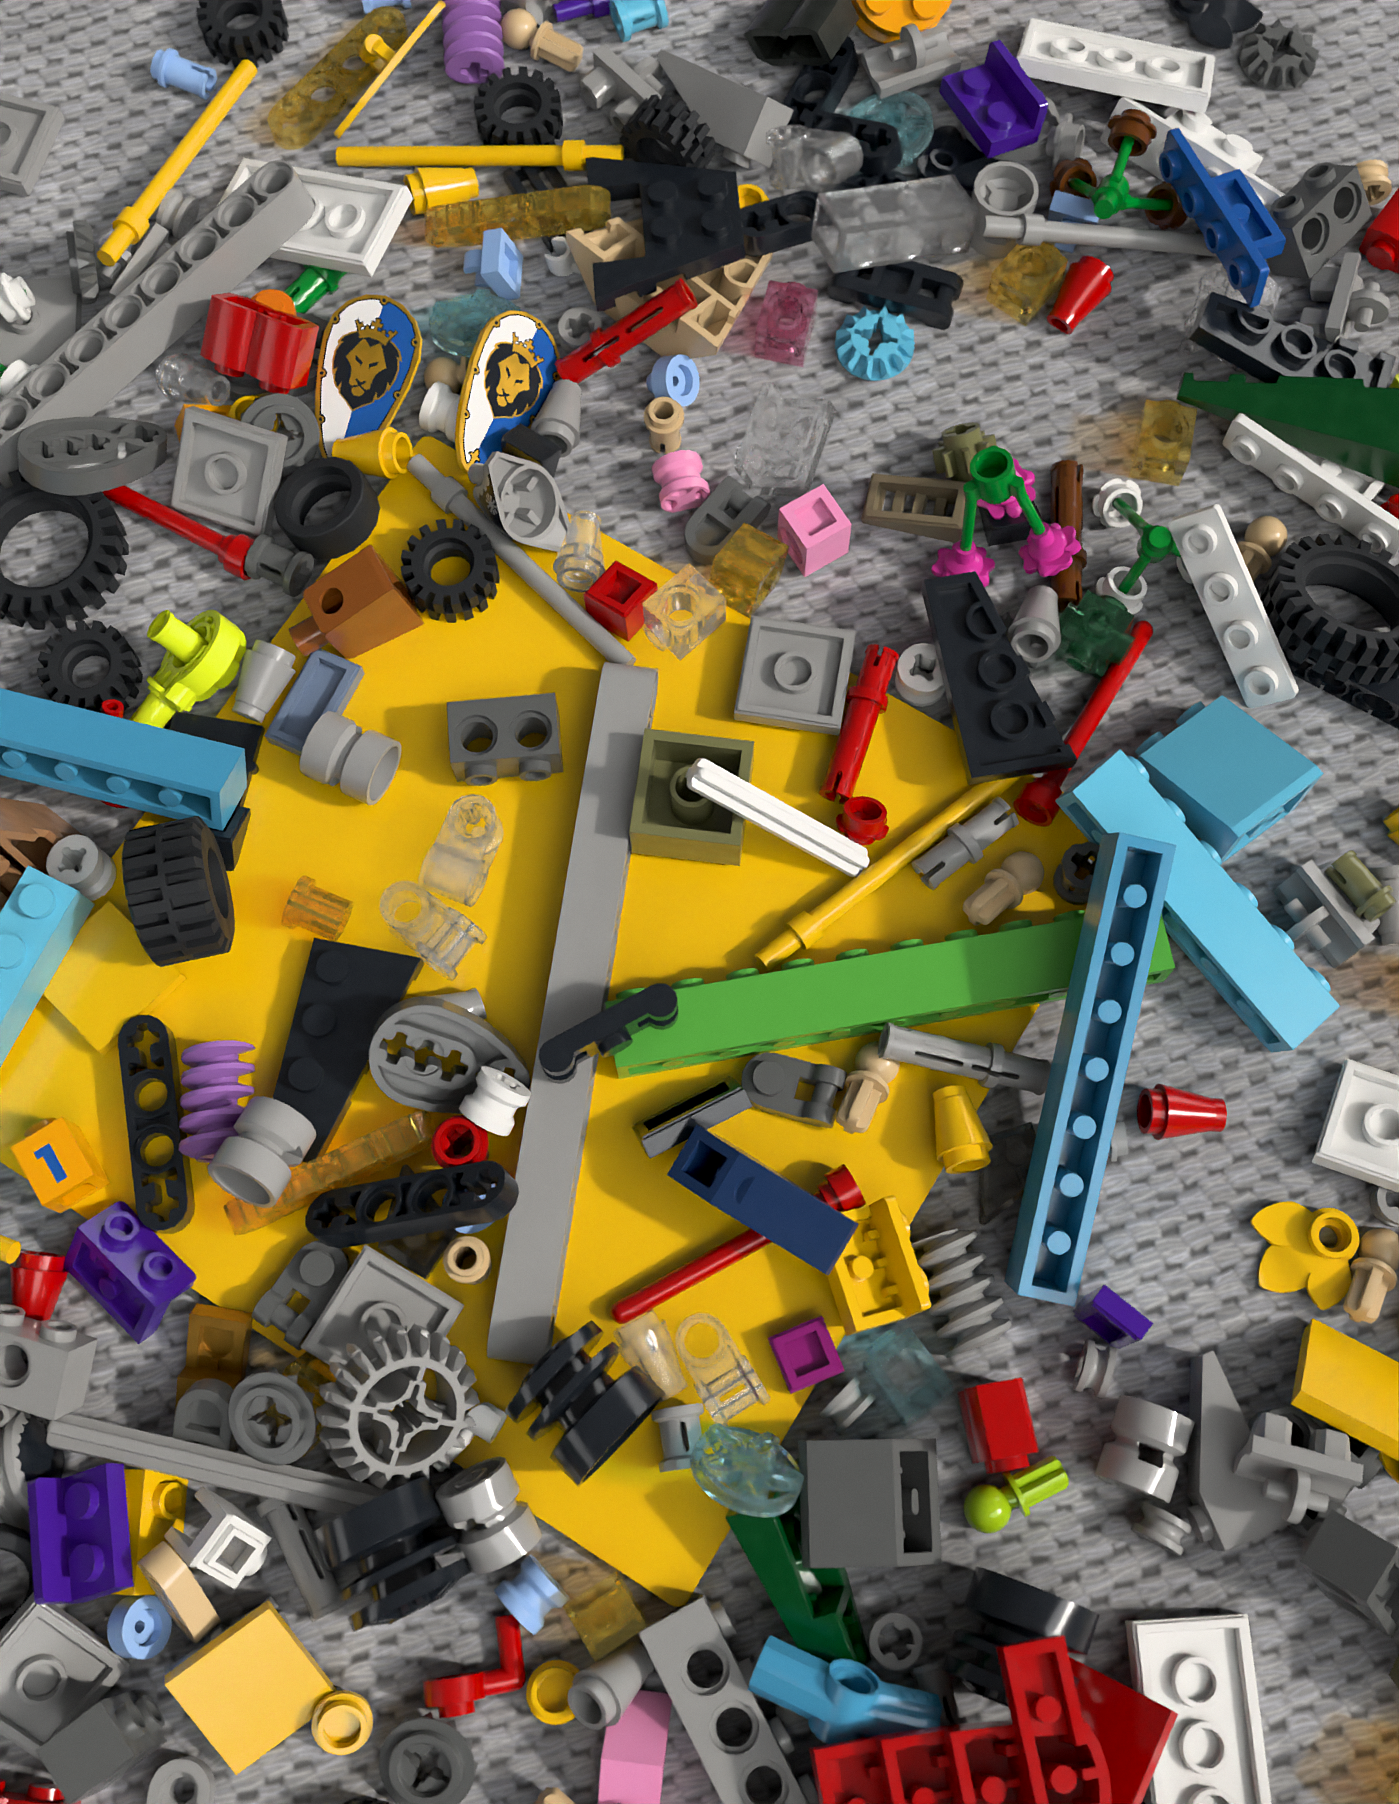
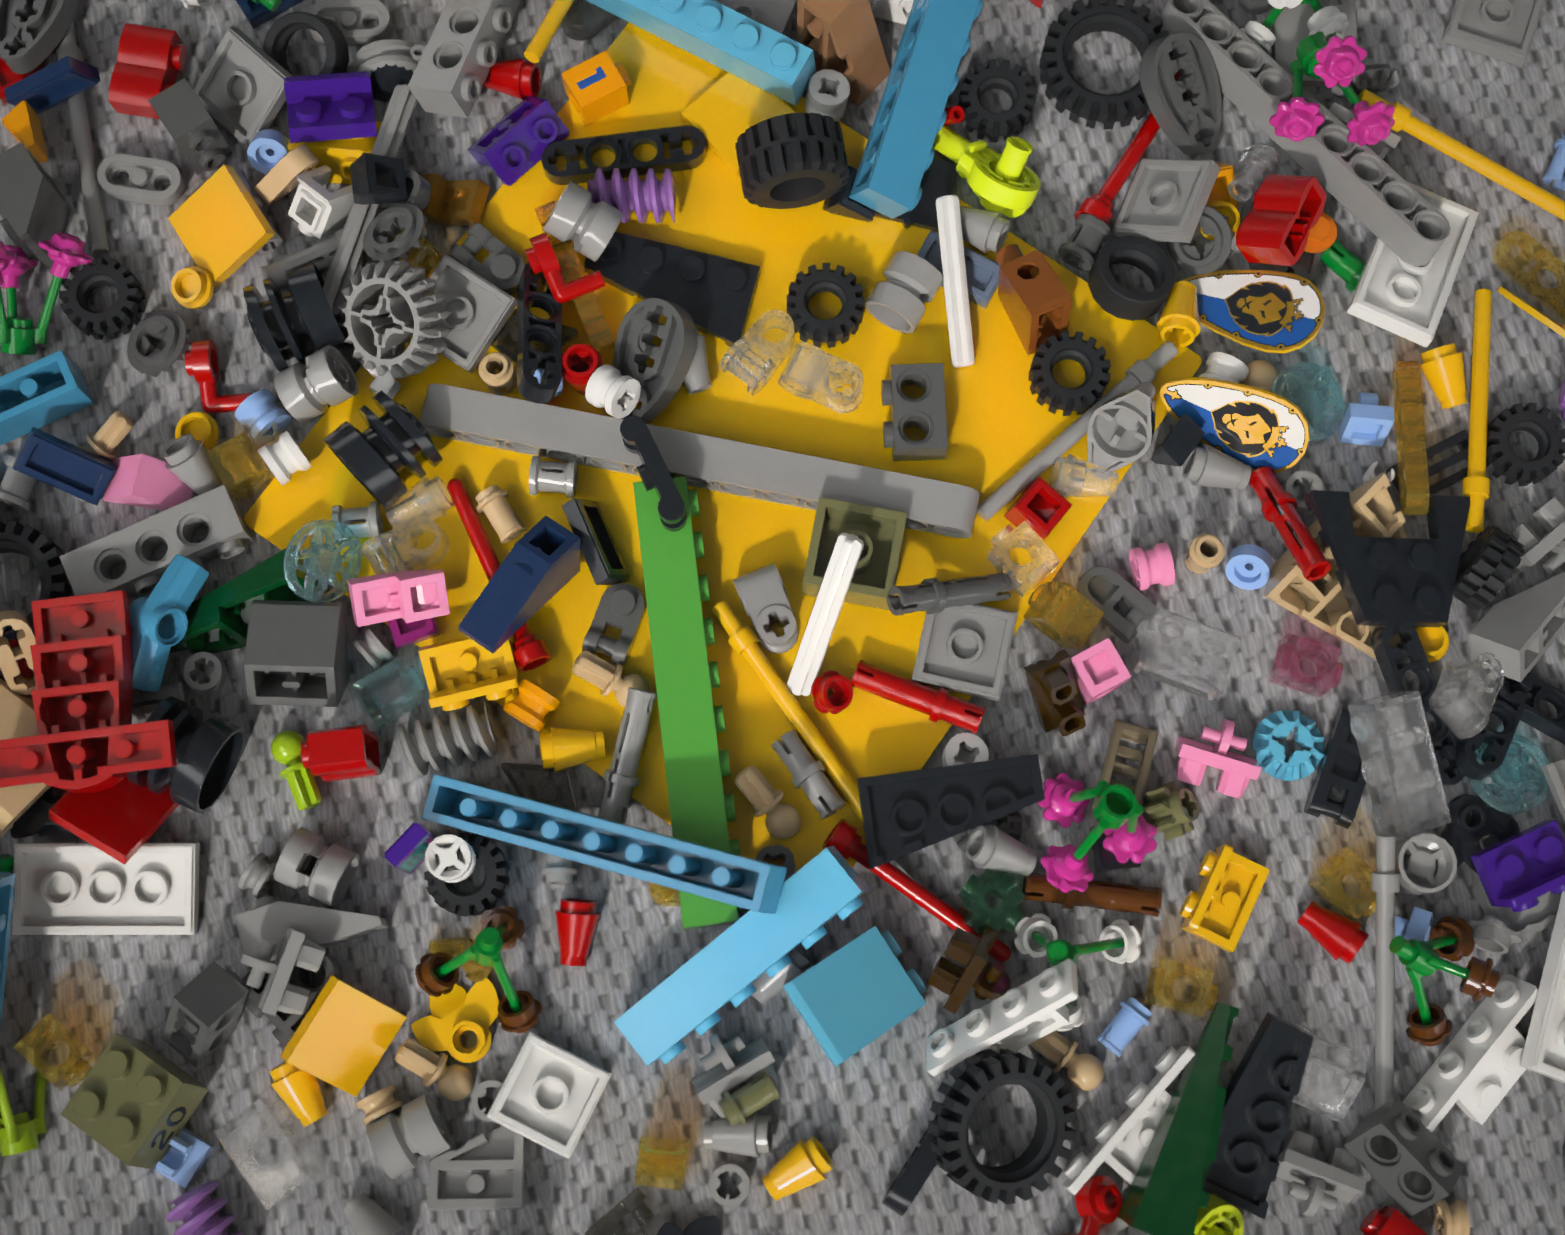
camera: 90 degrees right, 5 degrees up
(79, 250) = (1336, 63): none -> dark pink plant
(177, 213) = (1419, 158): light grey bush -> none
(194, 1449) = (378, 179): none -> black slope
(312, 1204) = (543, 259): none -> red plate
(316, 910) = (781, 267): clear yellow bush -> none
(337, 697) = (955, 281): none -> white axle
(356, 825) = (825, 281): none -> black tyre
(595, 1549) = (284, 458): none -> white wheel
(606, 1179) = (553, 477): none -> light grey bush
(657, 1246) = (500, 513): none -> tan pin
(743, 695) = (936, 595): none -> dark grey pin
(754, 902) = (767, 602): none -> light grey piece
(781, 1354) = (398, 595): none -> bright pink slope
(842, 573) = (1056, 694): none -> dark brown hips
(892, 407) = (1235, 767): none -> bright pink hips
(912, 1182) = (531, 705): none -> light orange wheel
(1055, 401) = (1223, 898): none -> yellow bracket
(1094, 1369) = (379, 836): light grey bush -> none
(1129, 1256) = (443, 854): none -> white wheel
(1161, 1245) = (487, 894): none -> black tyre
(1177, 650) = (956, 981): none -> dark brown hips
(1194, 1205) = (498, 932): none -> reddish brown plant
(1203, 492) = (1124, 1026): none -> light blue pin
(1224, 1248) = (454, 947): none -> clear yellow arm
(1227, 214) = (1399, 1070): blue bracket -> none

